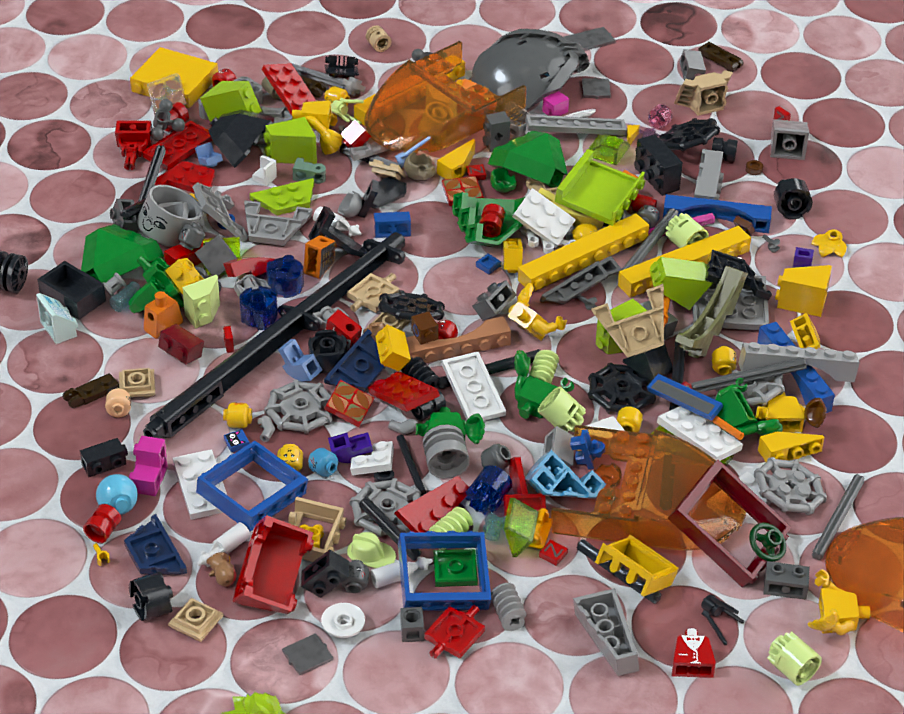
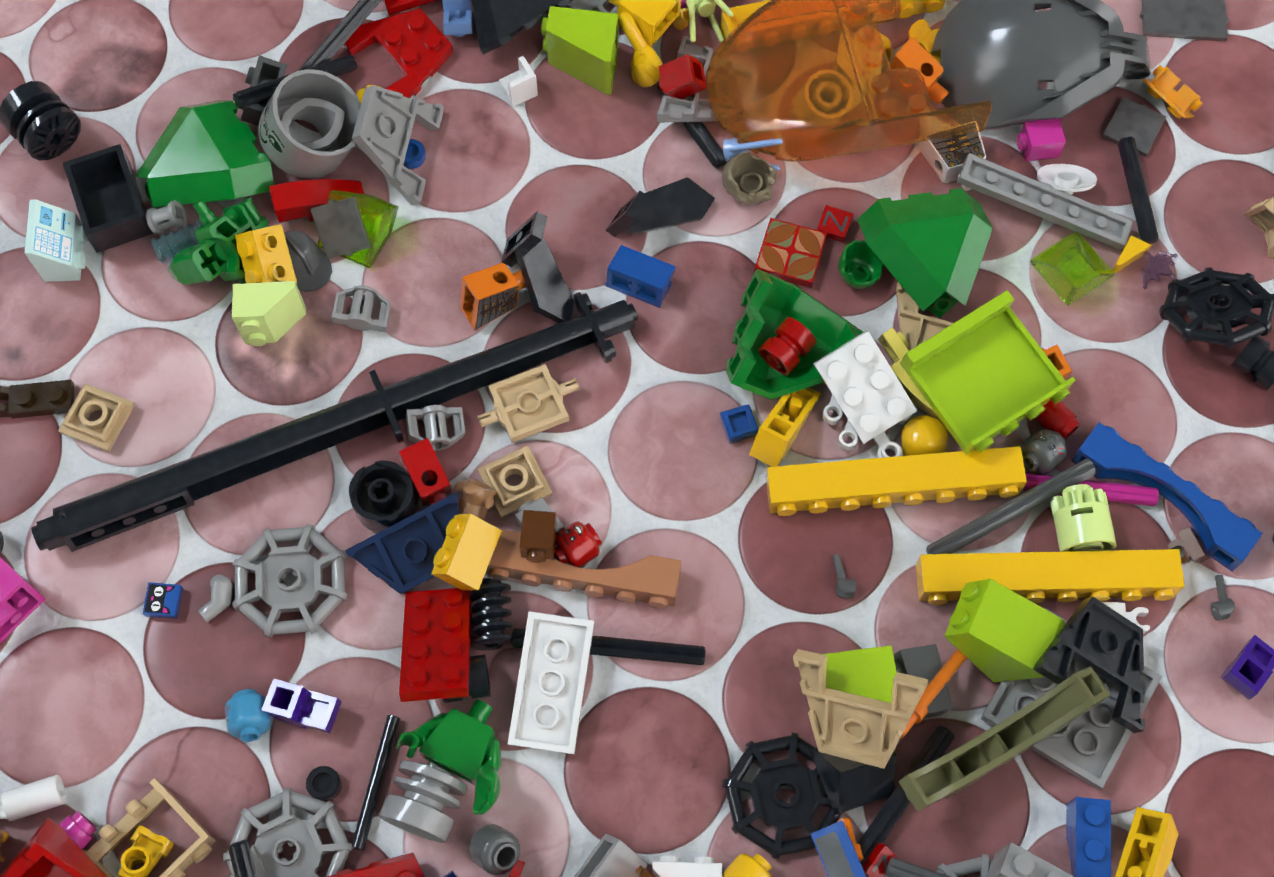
camera: 30 degrees right, 25 degrees up
(118, 403) = (44, 446): light nougat head -> none
(161, 314) = (200, 307): orange torso -> none
(181, 344) = (191, 376): dark red brick -> none
(188, 470) = (65, 660): white plate -> none
(191, 236) = (314, 181): dark grey head -> none
(228, 339) = (266, 396): red tile -> none
(237, 415) = (186, 557): yellow head -> none
(247, 265) = (384, 267): red slope -> none
(258, 307) = (340, 357): clear blue brick -> none
(273, 228) = (462, 202): light grey wing -> none
(285, 197) = (524, 146): lime wing -> none
(285, 276) = (417, 312): clear blue brick -> none
(291, 455) = (204, 684): yellow head -> none
(295, 484) = (87, 666): blue window -> none
(297, 364) = (330, 497): medium blue brick -> none
(305, 170) = (581, 112): sand green leg -> none
(340, 223) = (560, 232): white wheel -> none
(349, 403) = (356, 615): tile -> none
(350, 205) = (599, 210): light grey hair -> none
(379, 461) = (326, 756): white plate -> none
(382, 170) = (692, 165): tan piece -> none
(403, 428) = (411, 707): light grey arm -> none
(404, 305) = (557, 454): black plate -> none
(454, 163) = (806, 195): yellow slope -> none
(494, 300) = (691, 515): dark grey brick -> none
(496, 130) = (906, 162): dark grey brick -> none
(530, 320) = (717, 584): yellow torso -> none
(531, 390) = (635, 741): green torso -> none
(544, 365) = (680, 697): yellowish green piece -> none
(562, 410) = (646, 813): yellowish green gear -> none
(581, 281) = (857, 540): dark grey wedge -> none
(611, 69) = (1179, 101): none -> light orange hinge
(615, 107) = (1138, 190): none -> black axle
(659, 163) = (1125, 351): black piece -> none
(660, 116) = (1197, 240): clear pink head -> none
(710, 176) = (1191, 420): light grey wedge -> none
(724, 360) = (981, 826): yellow head -> none
(804, 289) = (1207, 749): yellow slope -> none

